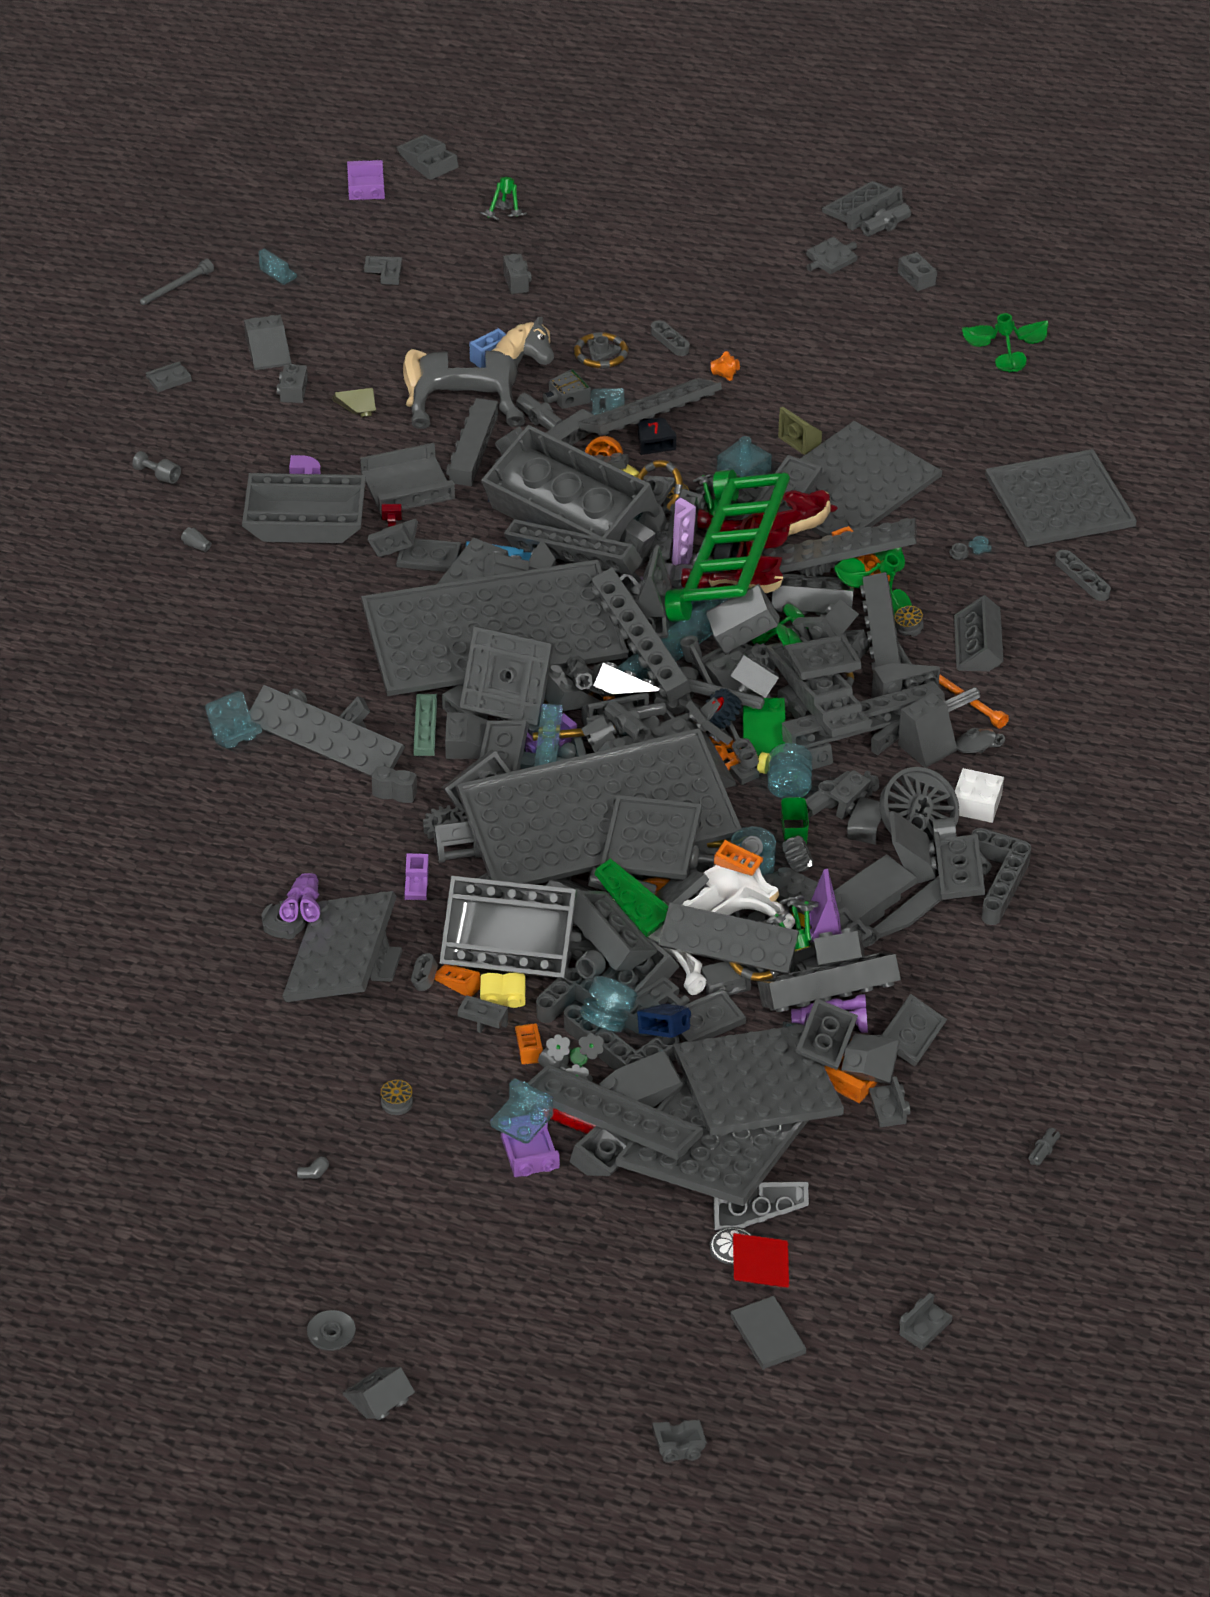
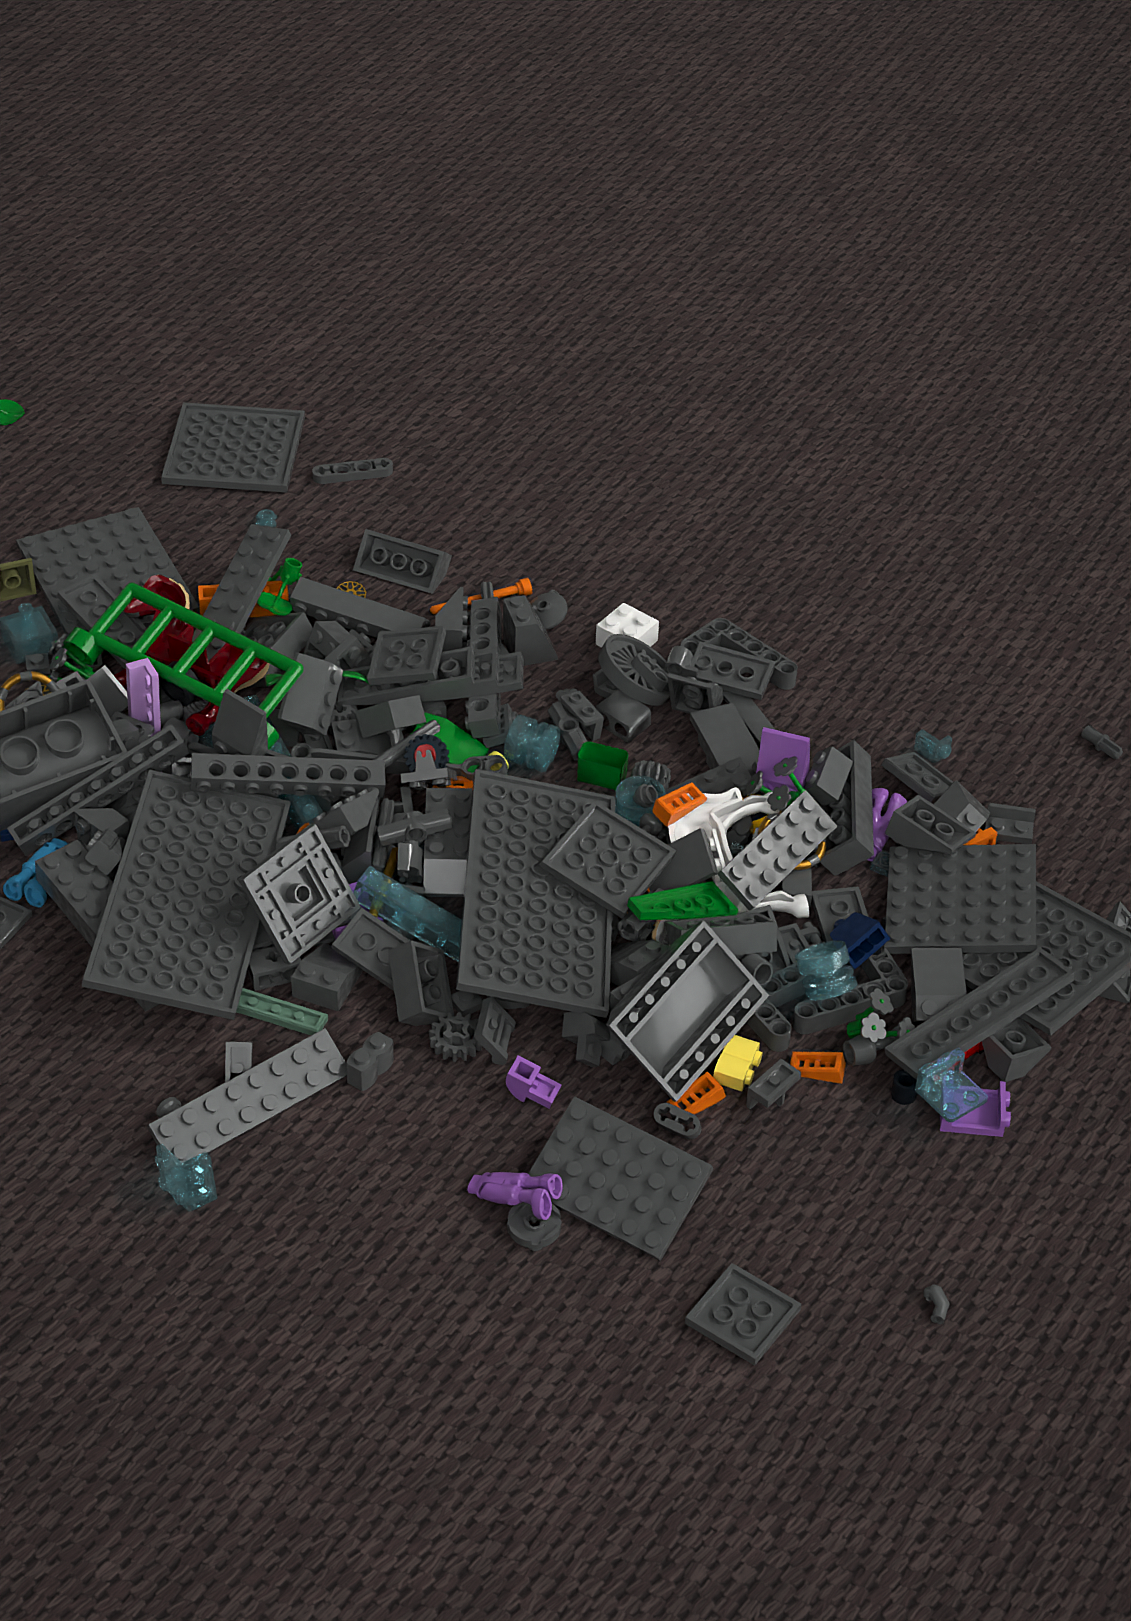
camera: 70 degrees left, 0 degrees up
(250, 1056) = (743, 1314): none -> dark grey plate
(396, 1097) = (867, 1199): dark grey wheel -> none
(958, 1029) = (932, 747): none -> clear light blue bracket

